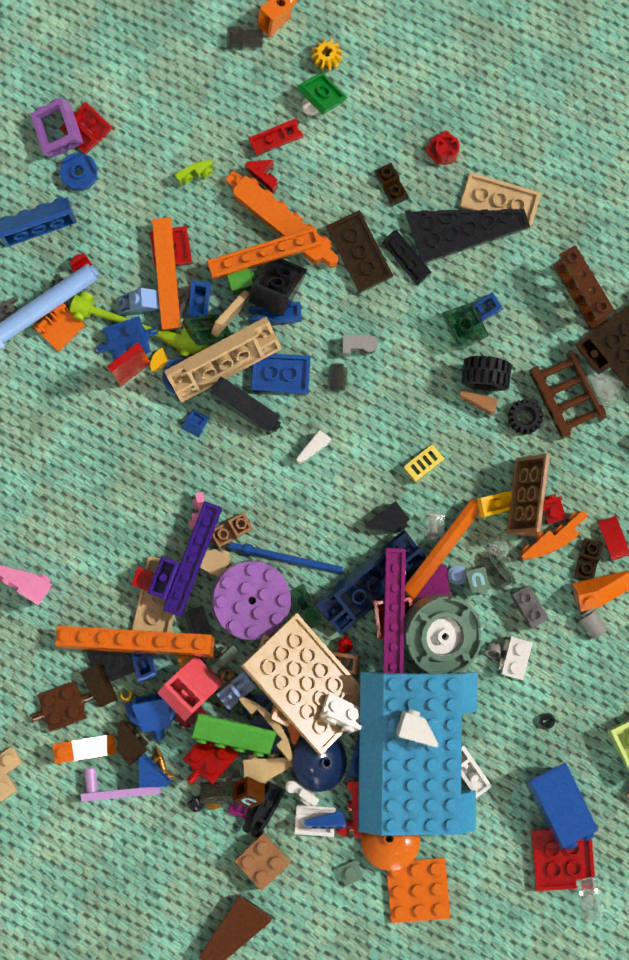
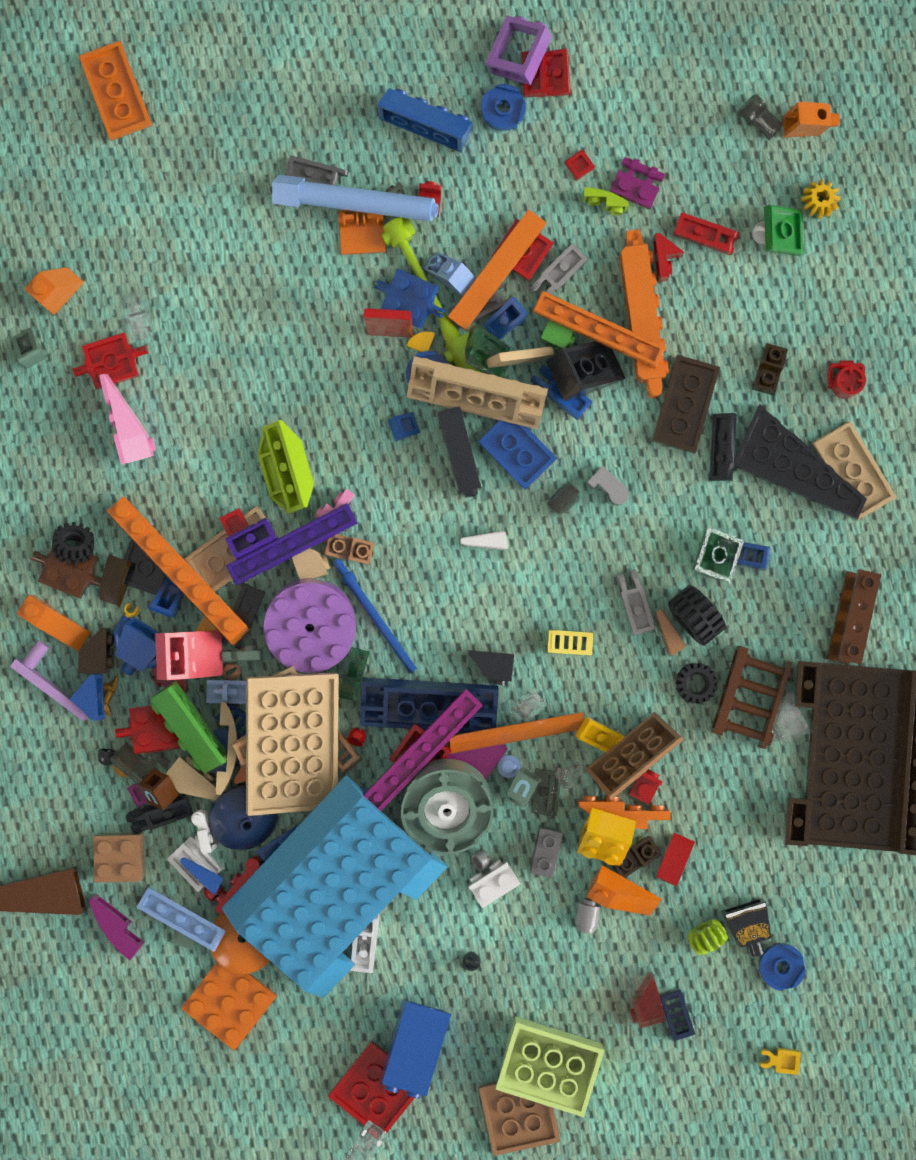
camera: 35 degrees right, 5 degrees up
(47, 678) = (70, 553): none -> black tyre
(143, 515) = (285, 467): none -> lime wedge
(158, 165) = (579, 165): none -> red tile
(205, 149) = (635, 189): none -> magenta plate
(206, 238) = (561, 269): none -> light grey hinge
(301, 909) = (115, 927): none -> magenta slope
(339, 863) = (181, 919): none -> light blue plate
(341, 713) = (298, 795): white bracket -> none
(415, 728) = (345, 869): white slope -> none
(443, 402) = (636, 605): none -> light grey hinge
(558, 562) = (606, 837): none -> yellow piece

